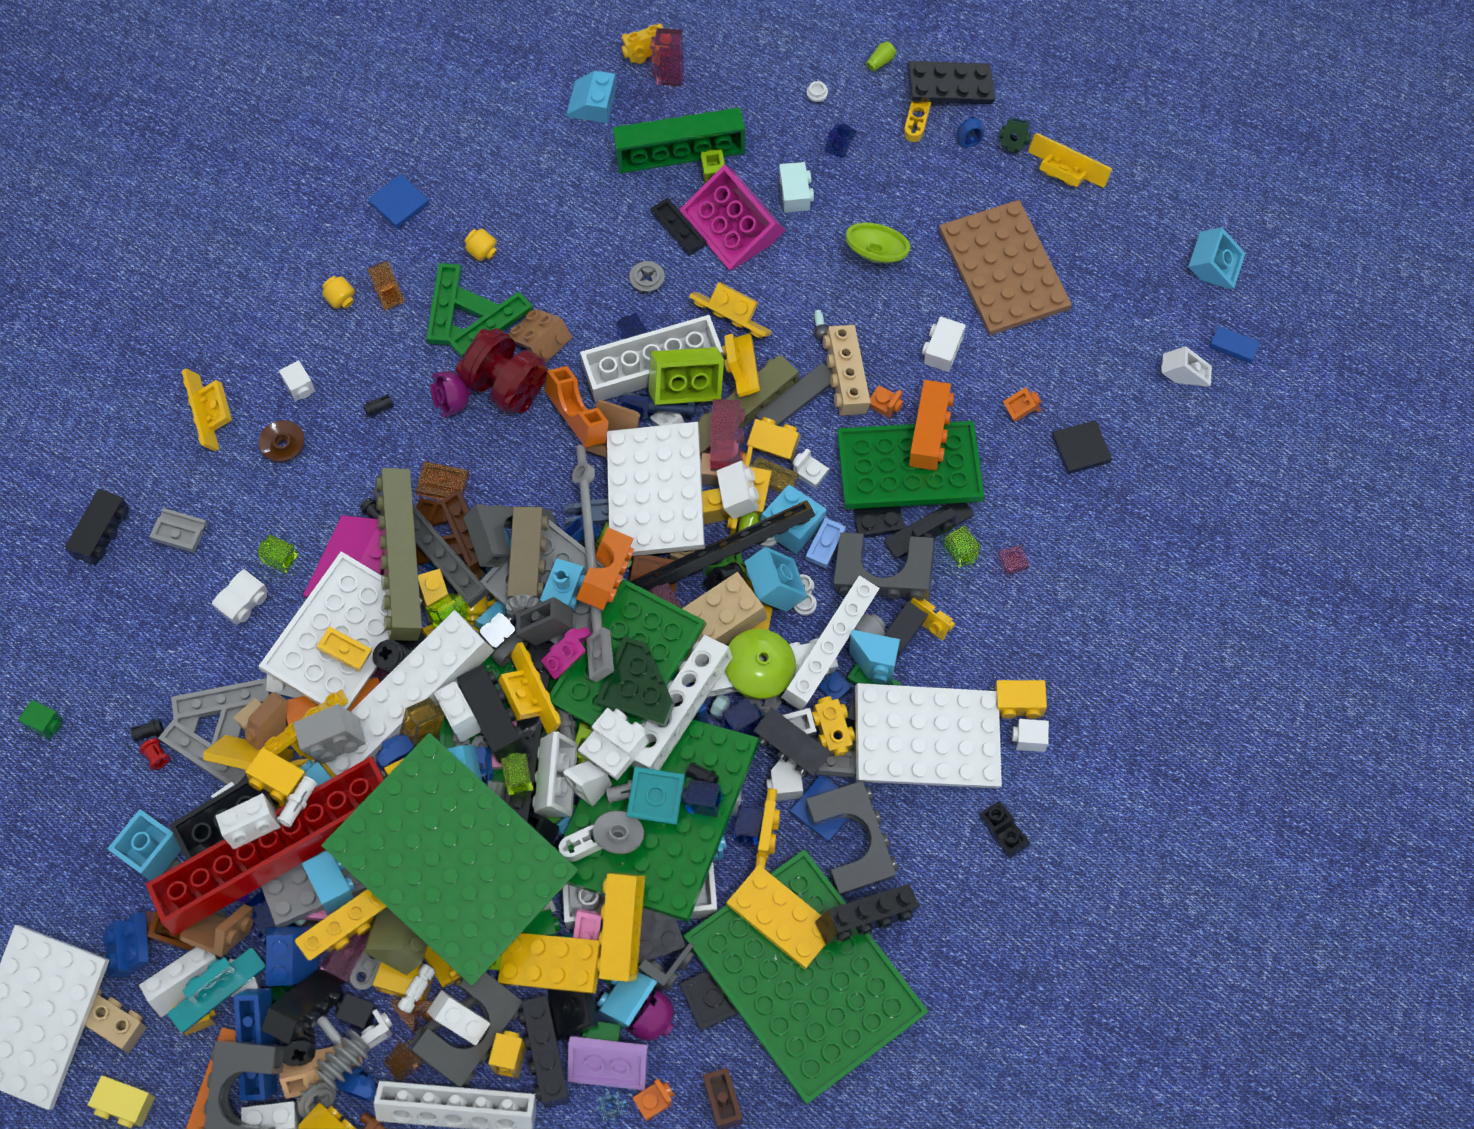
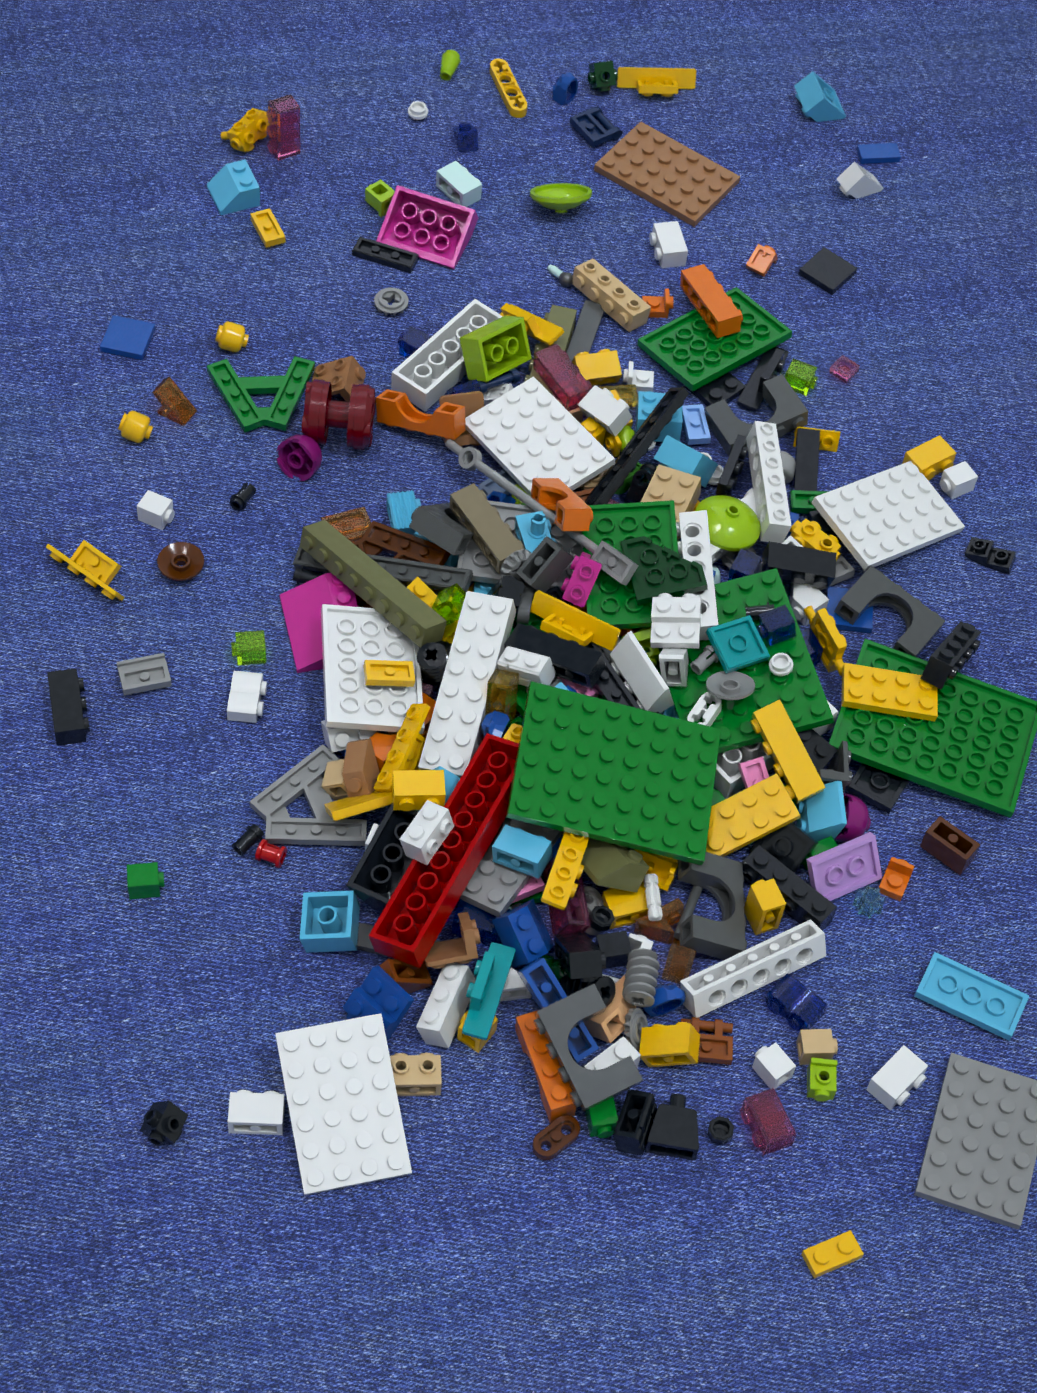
camera: 40 degrees left, 10 degrees down
(120, 1101) = (470, 1129): light yellow brick -> none
(297, 801) = (455, 796): white pin -> none
(329, 733) = (438, 734): light grey brick -> none
(362, 980) = (601, 918): none -> black tile
(458, 1017) = (704, 899): white brick -> none
(499, 490) = (400, 508): none -> medium azure brick
(517, 773) = (615, 685): clear neon green brick -> none
(593, 150) = (267, 227): none -> yellow plate
(678, 139) = (338, 187): green brick -> none
(678, 838) = (781, 664): none -> white plate
(733, 305) = (484, 287): yellow bracket -> none
(810, 612) = (733, 467): none -> black plate
(874, 655) = (809, 473): medium azure slope -> none
(950, 82) = (520, 60): black plate -> none
(964, 185) = (590, 128): none -> dark blue plate

